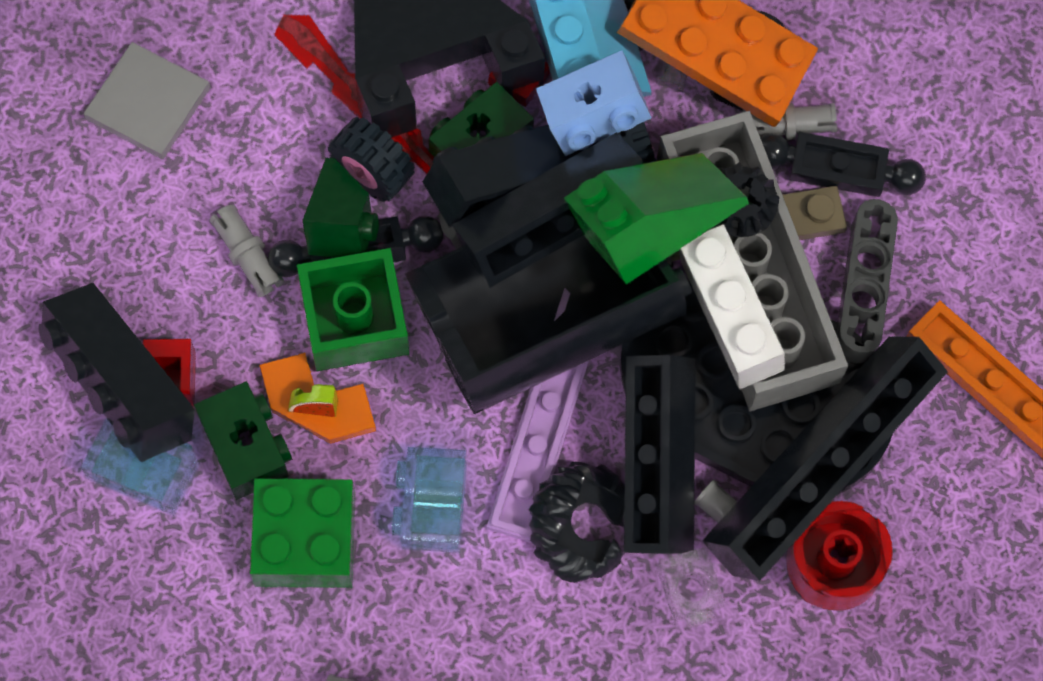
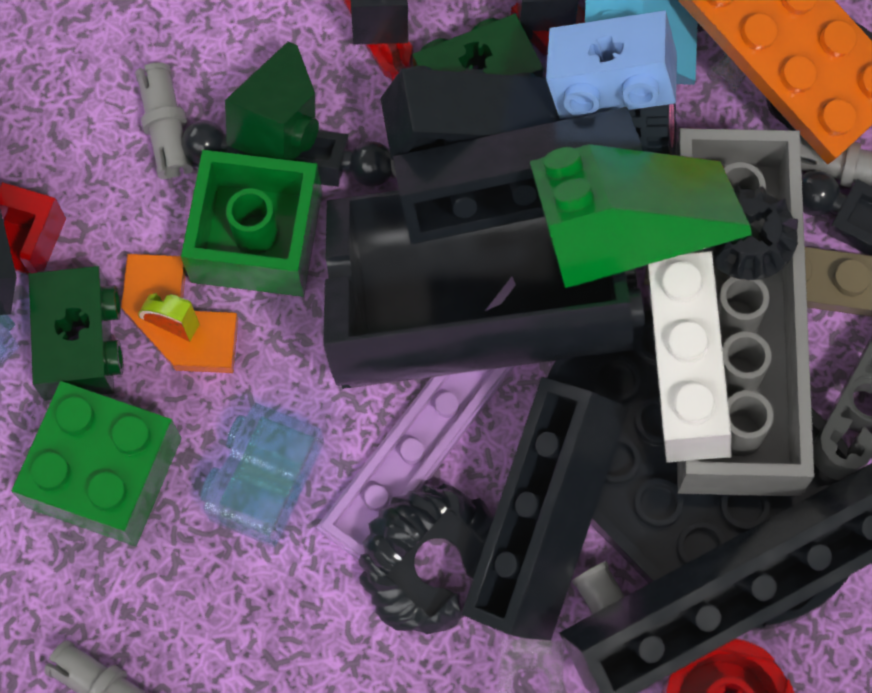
camera: 25 degrees right, 0 degrees up
(372, 158) = (339, 58): black wheel -> none

